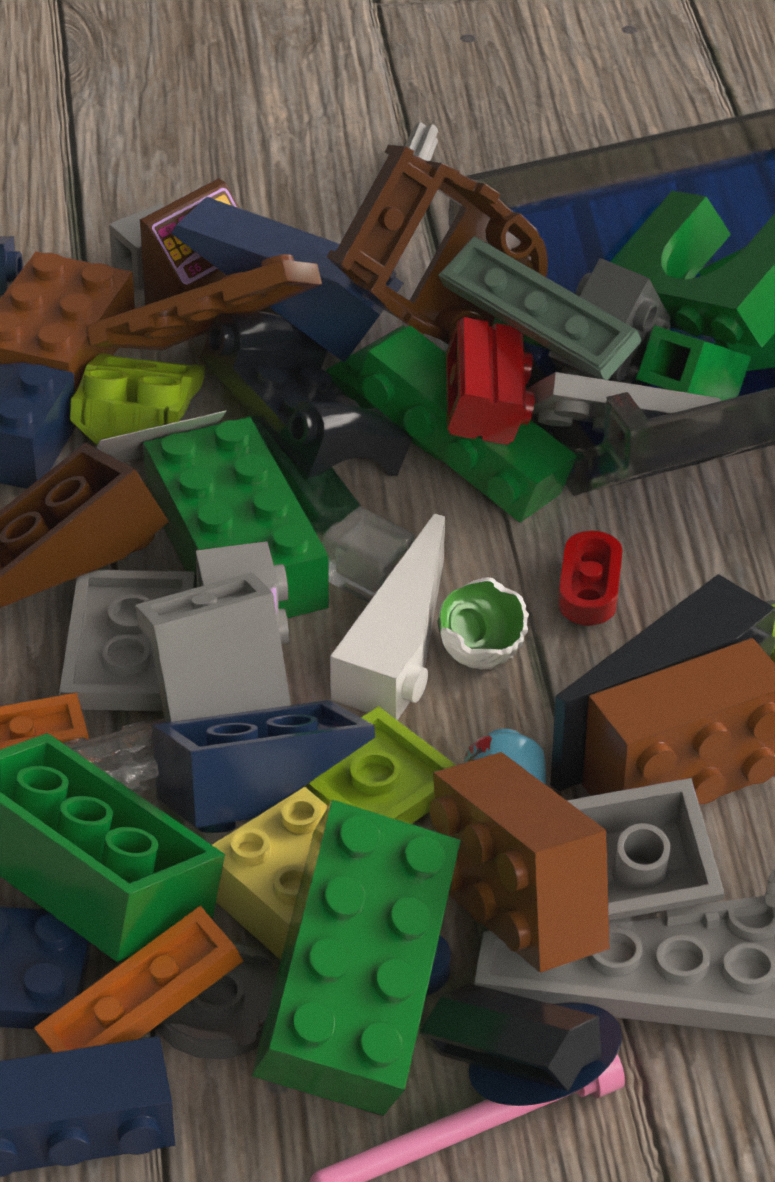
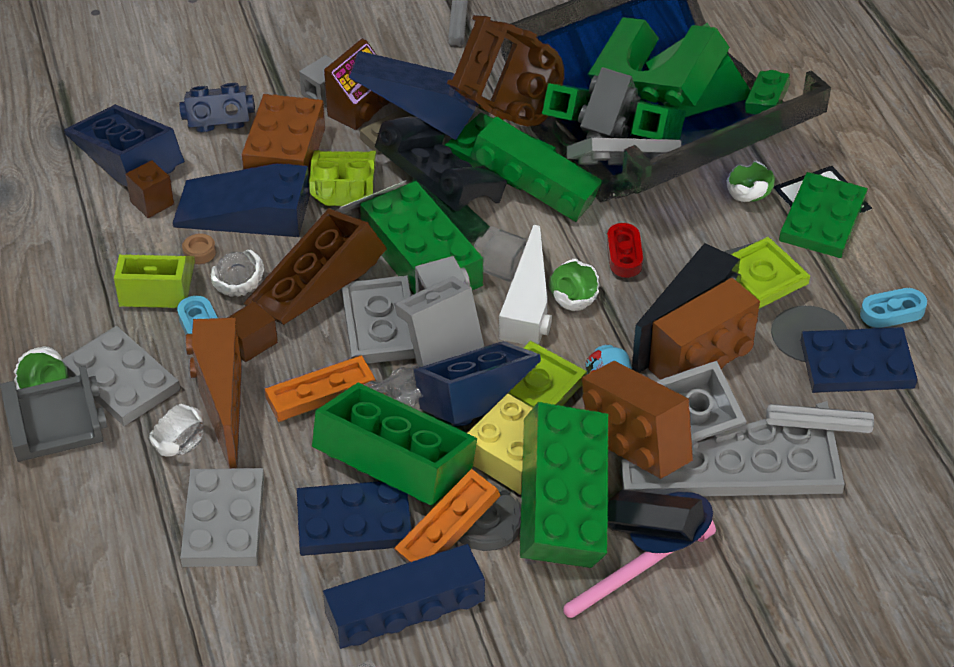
camera: 10 degrees left, 5 degrees up
(193, 312) = (372, 118): dark orange wing -> none
(487, 381) = (548, 144): red brick -> none
(540, 308) = (572, 99): sand green tile -> none

